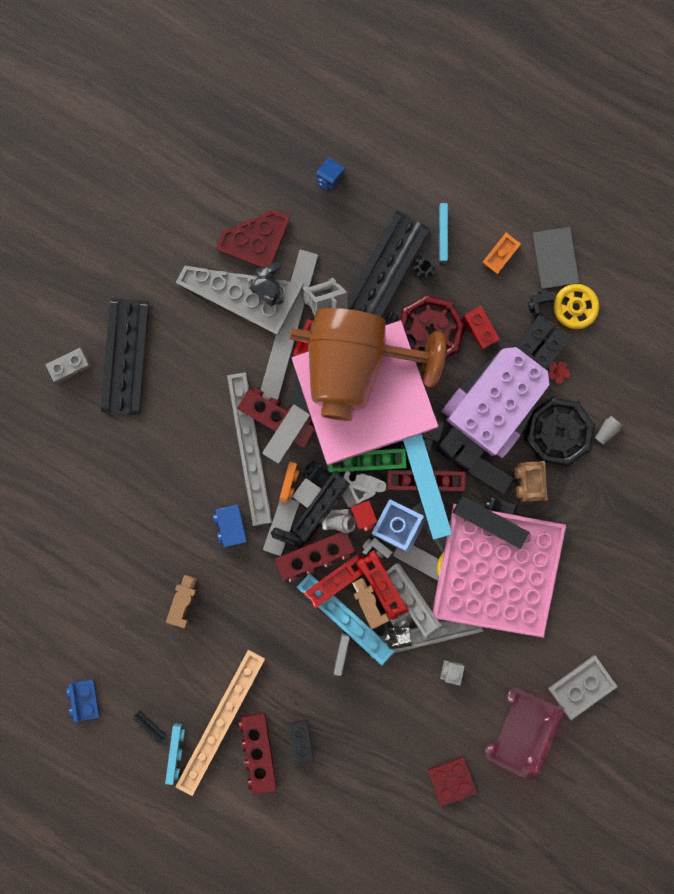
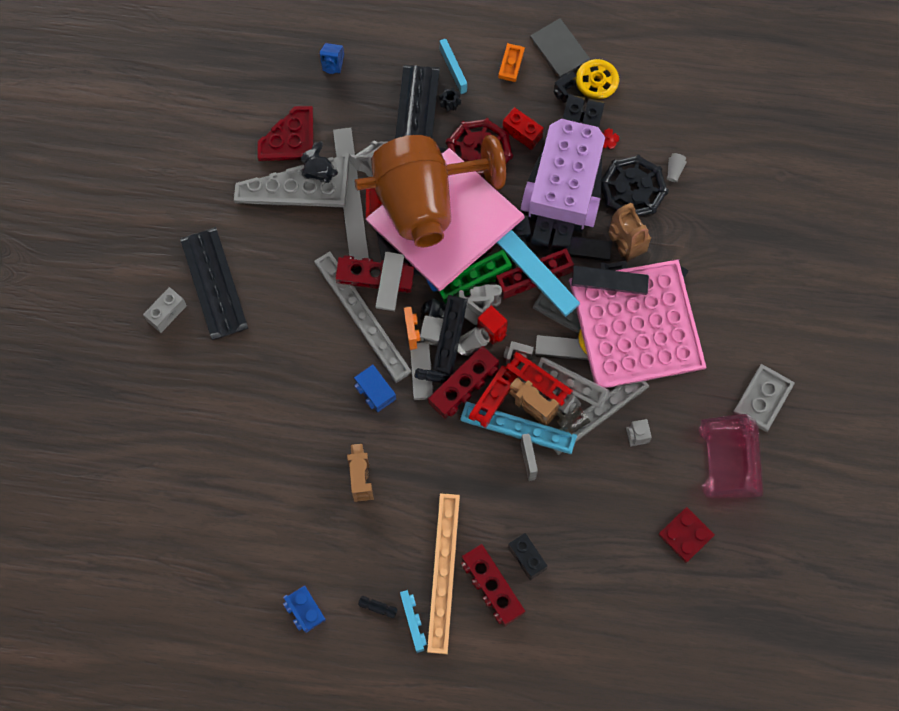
camera: 20 degrees left, 15 degrees down
(399, 526) = (529, 321): light blue brick -> none

